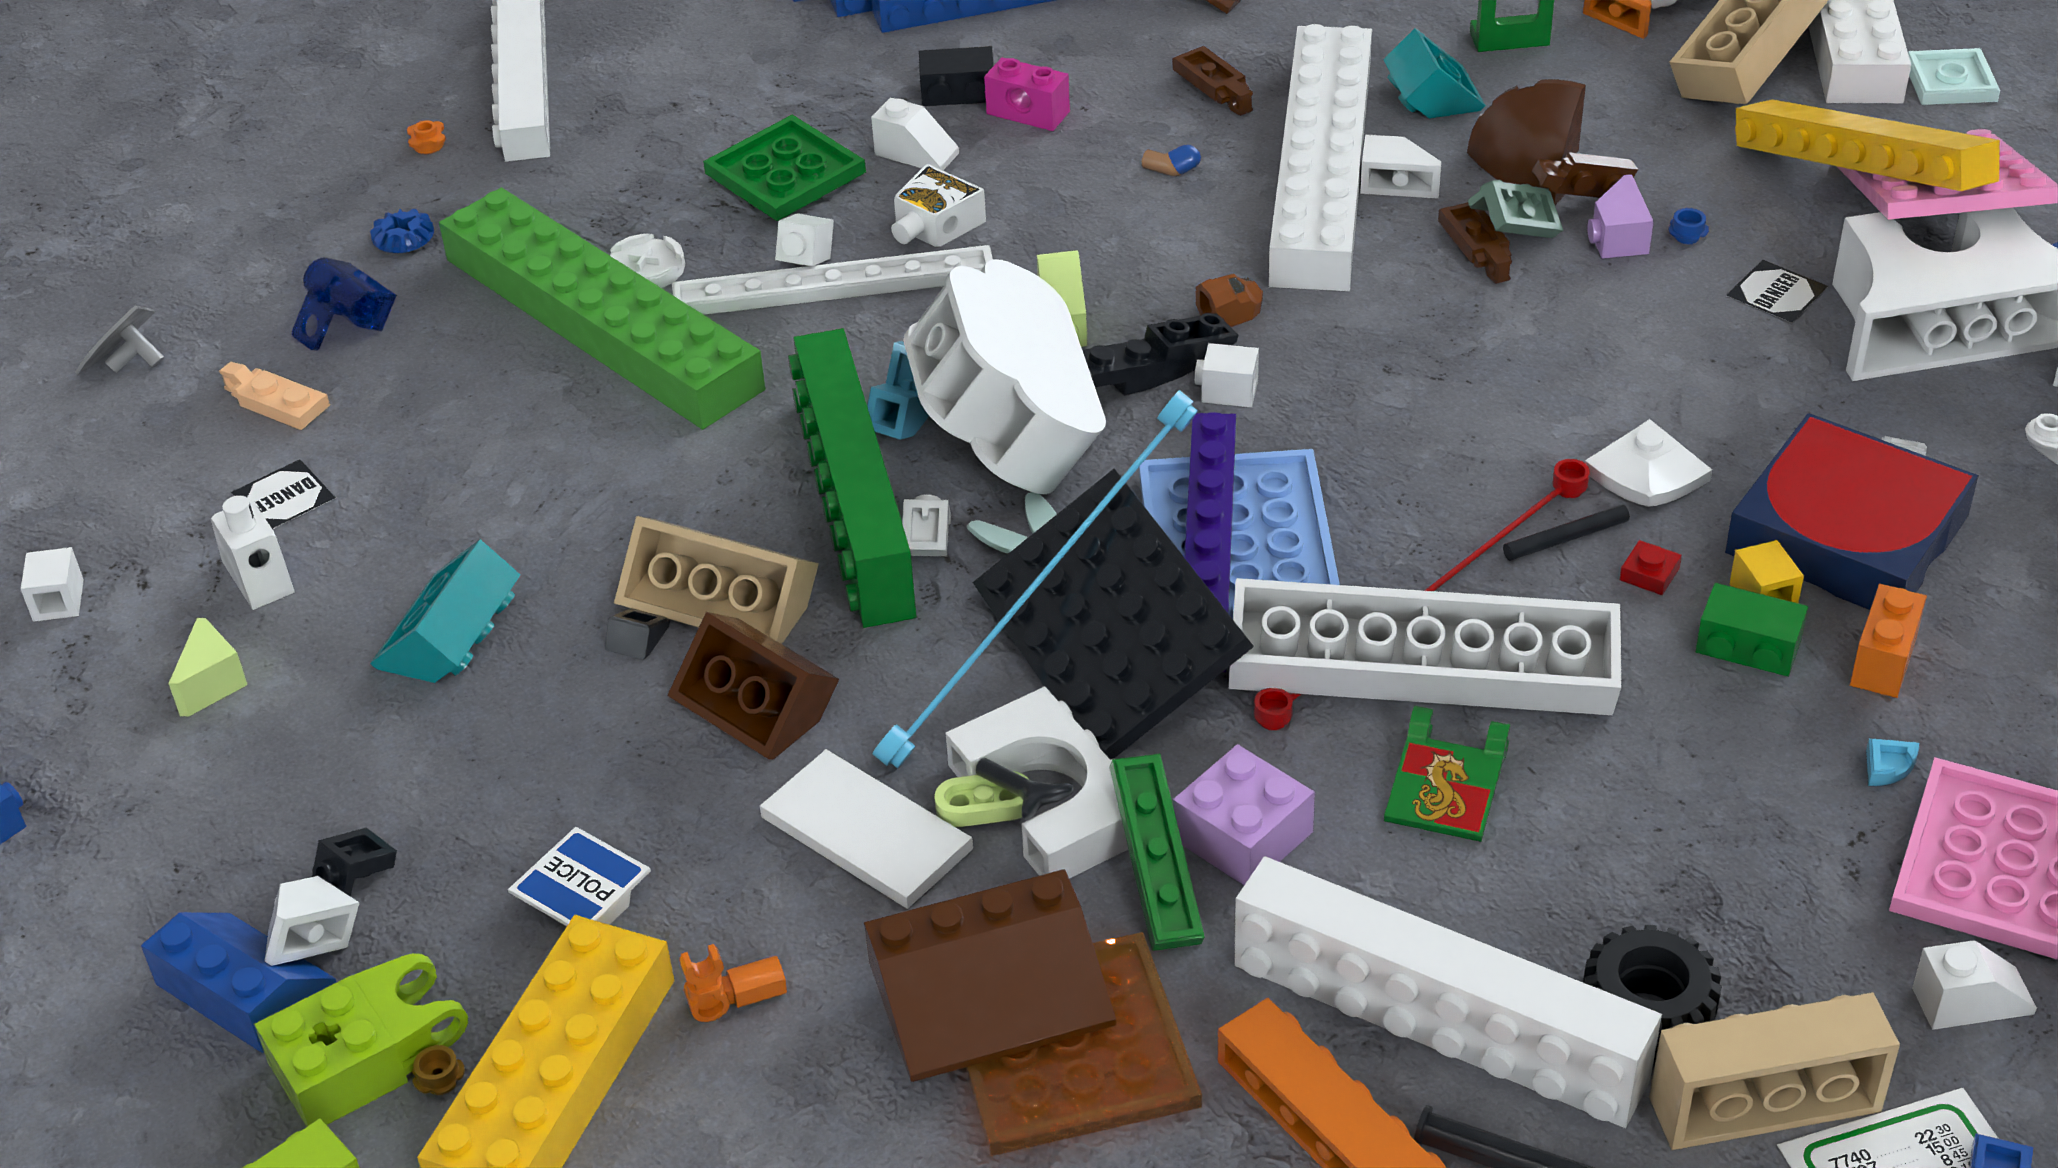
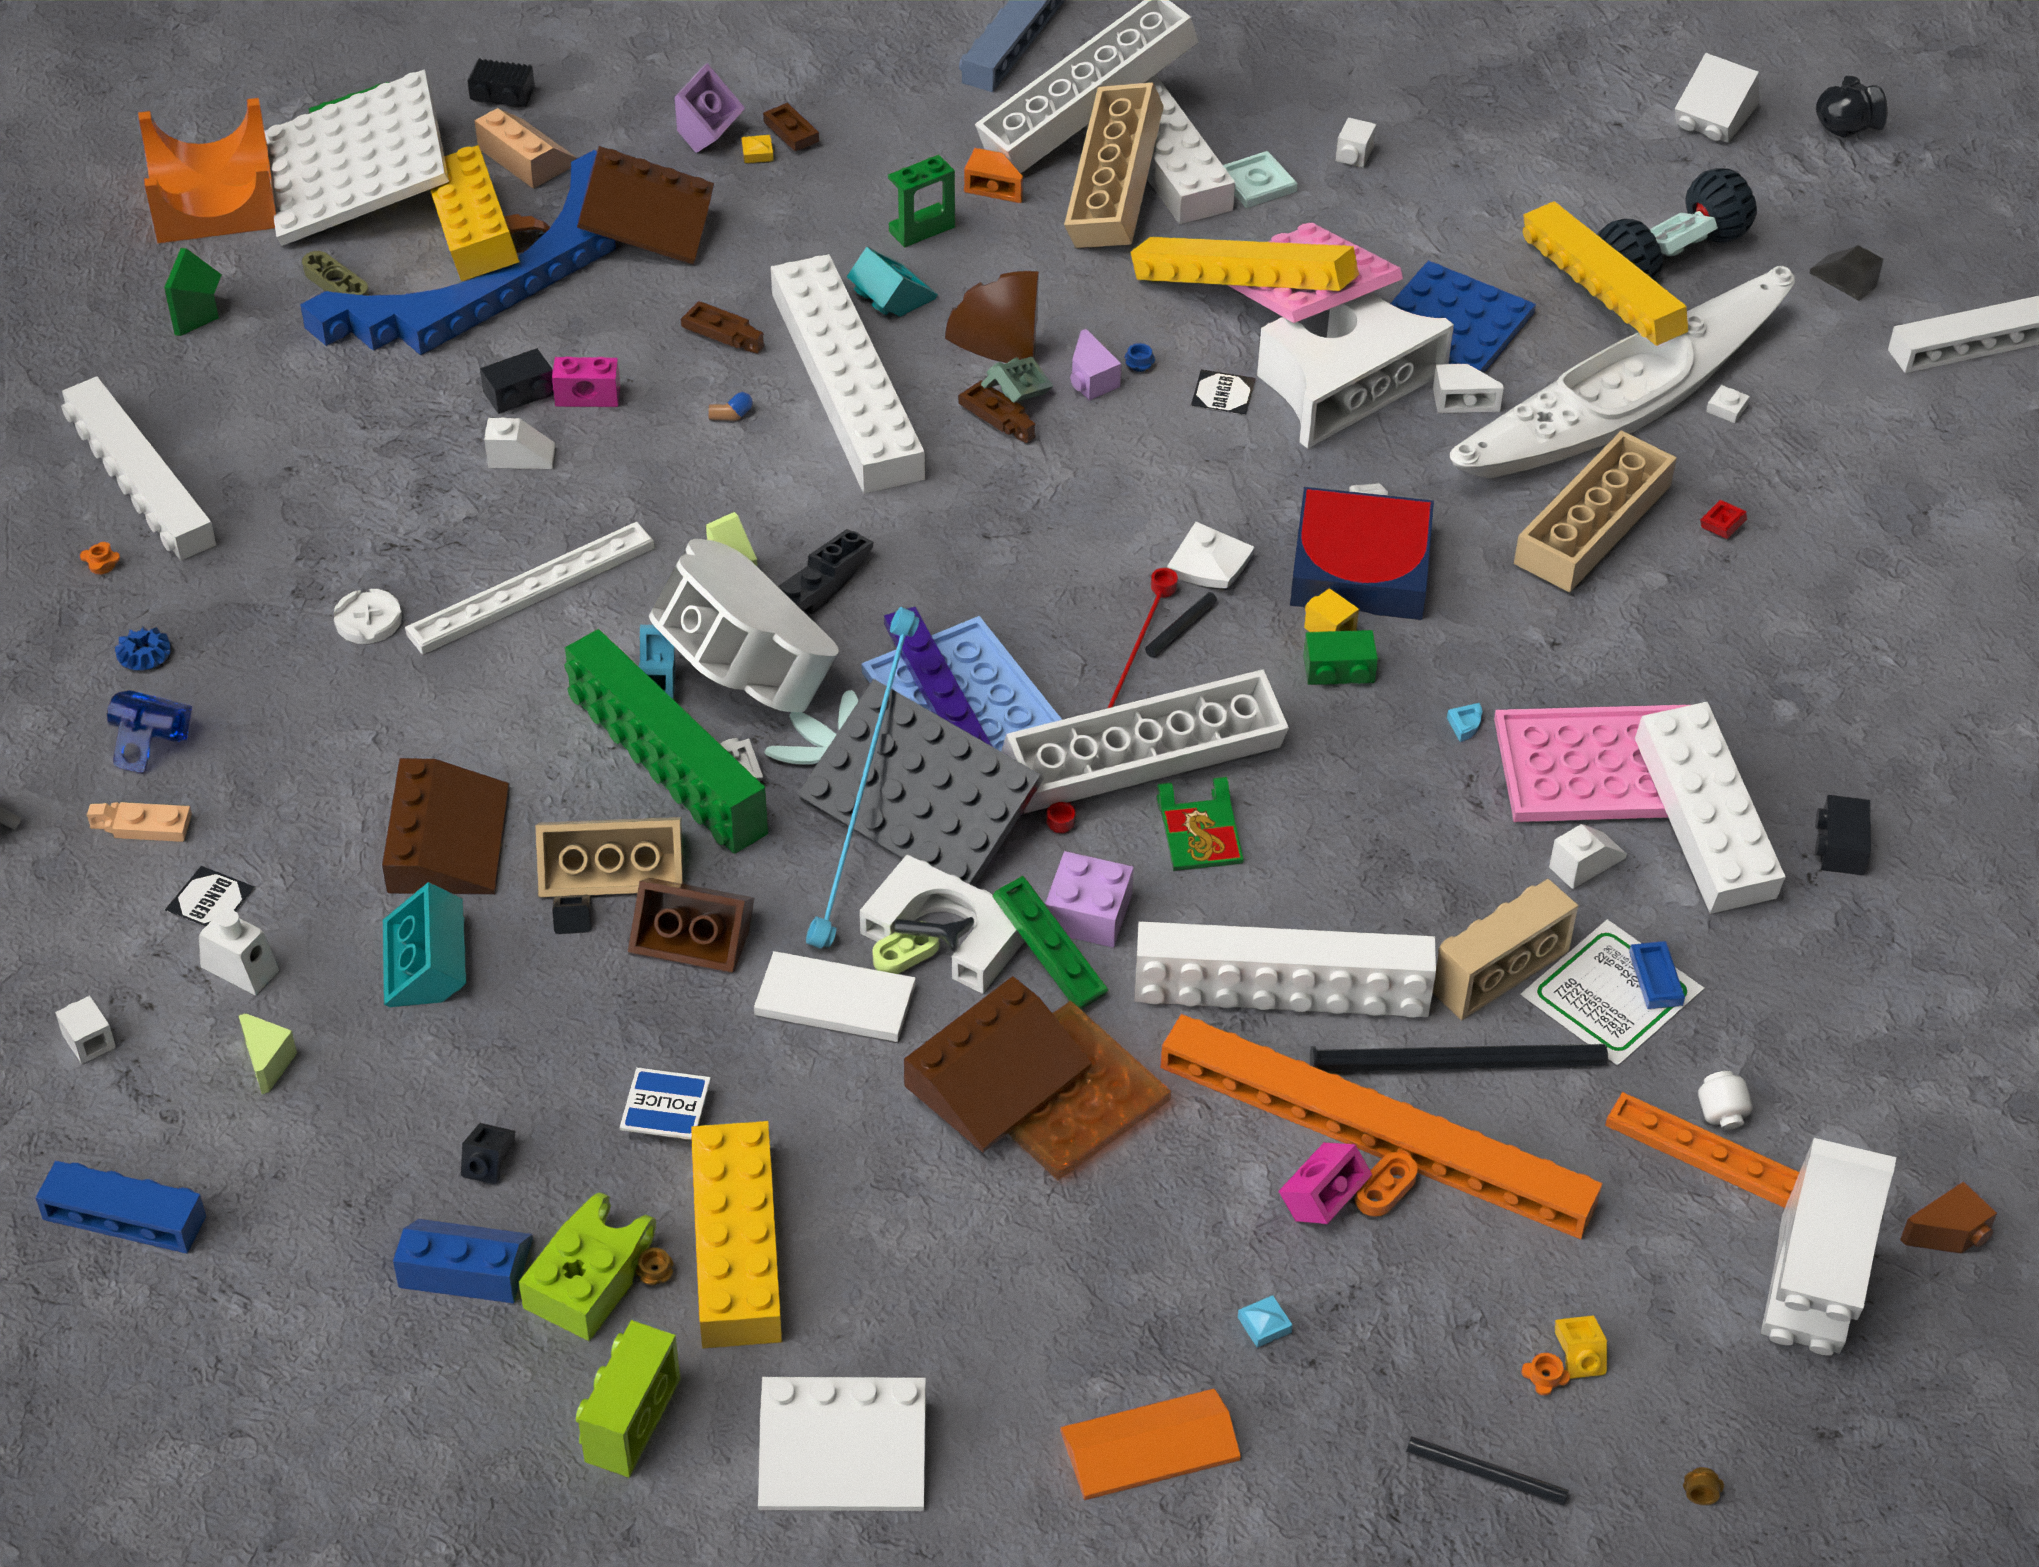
camera: 30 degrees left, 5 degrees up
(309, 920) = (492, 1200): white slope -> none
(559, 496) = (444, 829): none -> reddish brown slope
(604, 307) = (363, 663): bright green brick -> none
(711, 994) = (819, 1134): orange bar -> none
(784, 167) = (428, 500): green plate -> none
(804, 239) = (493, 560): white brick -> none
(937, 208) = (577, 501): white torso -> none
(1228, 375) = (884, 575): white brick -> none
(1231, 298) = (846, 513): dark orange rock -> none
(1398, 168) = (912, 366): white slope -> none
(1582, 174) = (1053, 338): reddish brown hinge -> none
(1650, 567) = (1249, 632): red plate -> none
(1659, 966) = (1409, 907): black tyre -> none
(1888, 640) = (1429, 637): orange brick -> none

